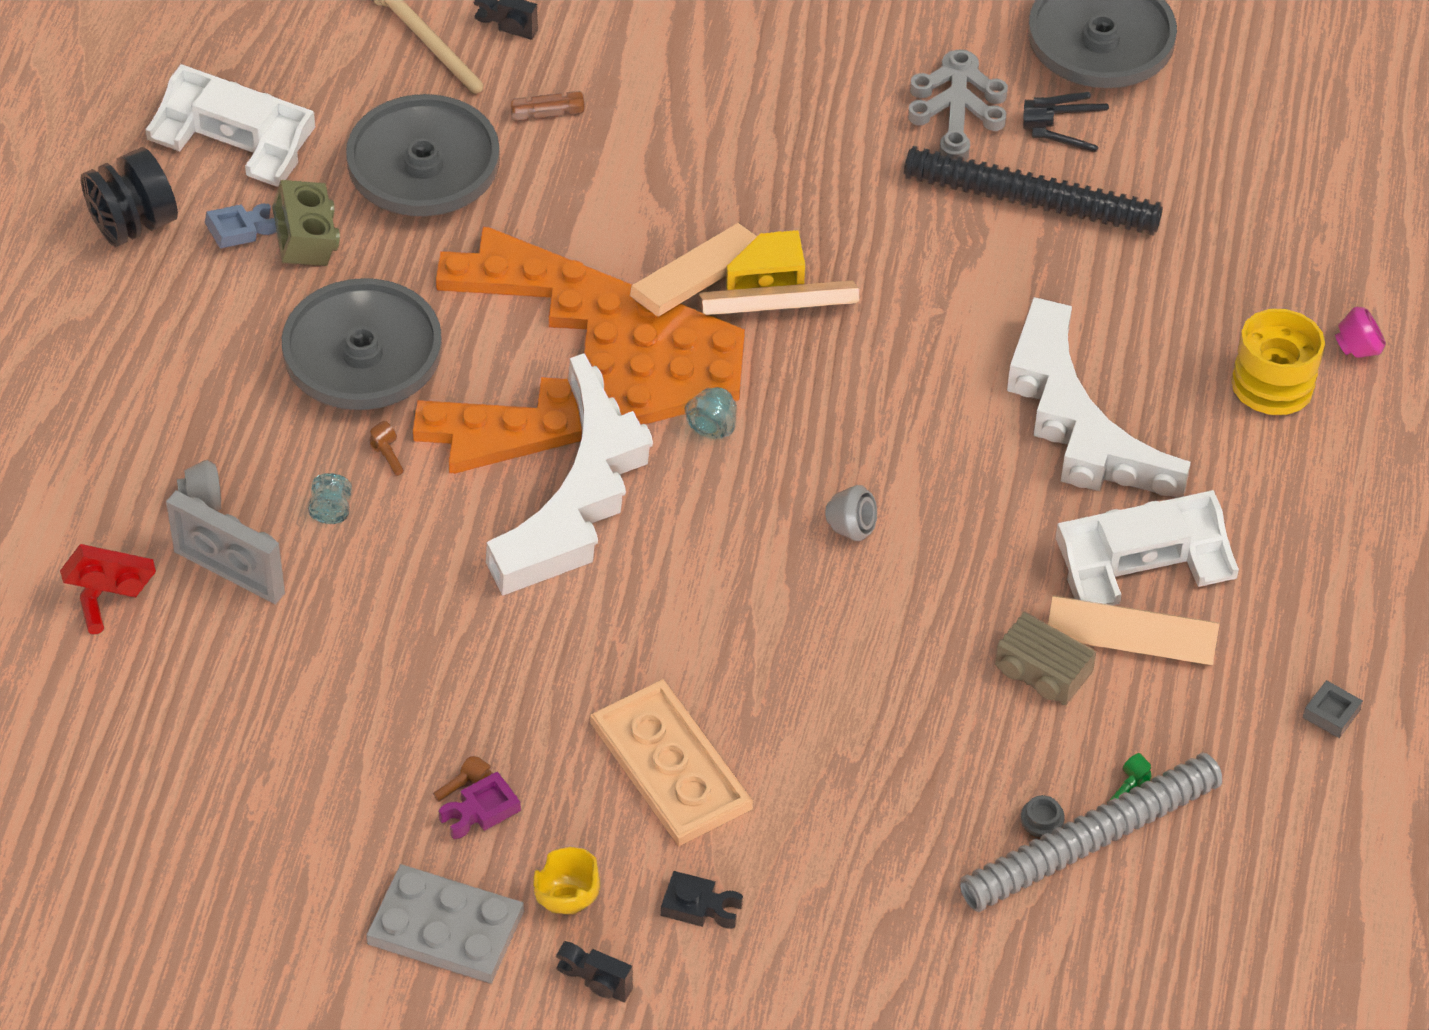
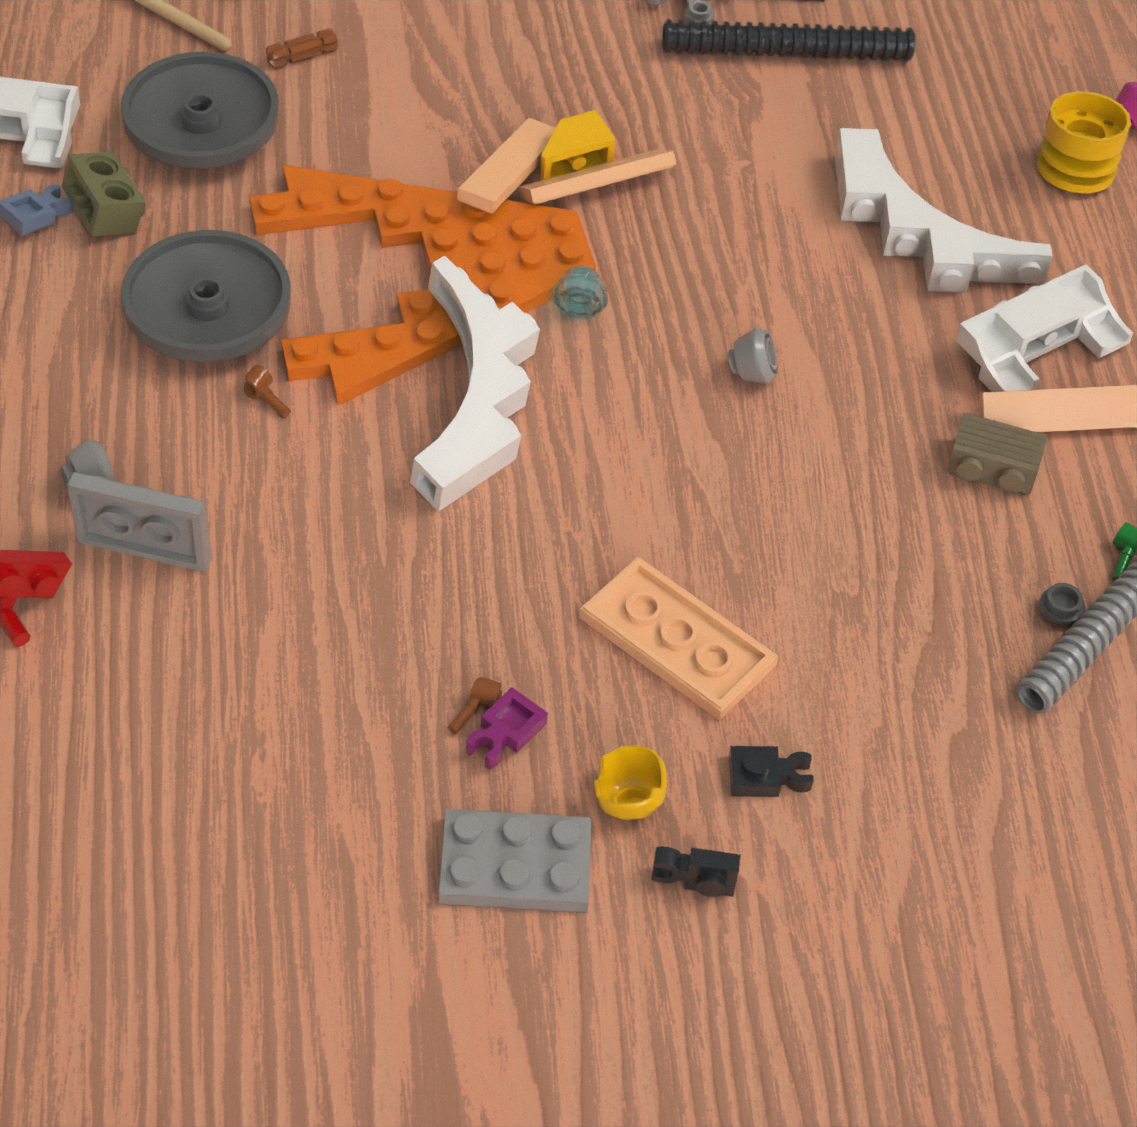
camera: 20 degrees left, 0 degrees up
(330, 498) = (228, 452): clear light blue wheel -> none

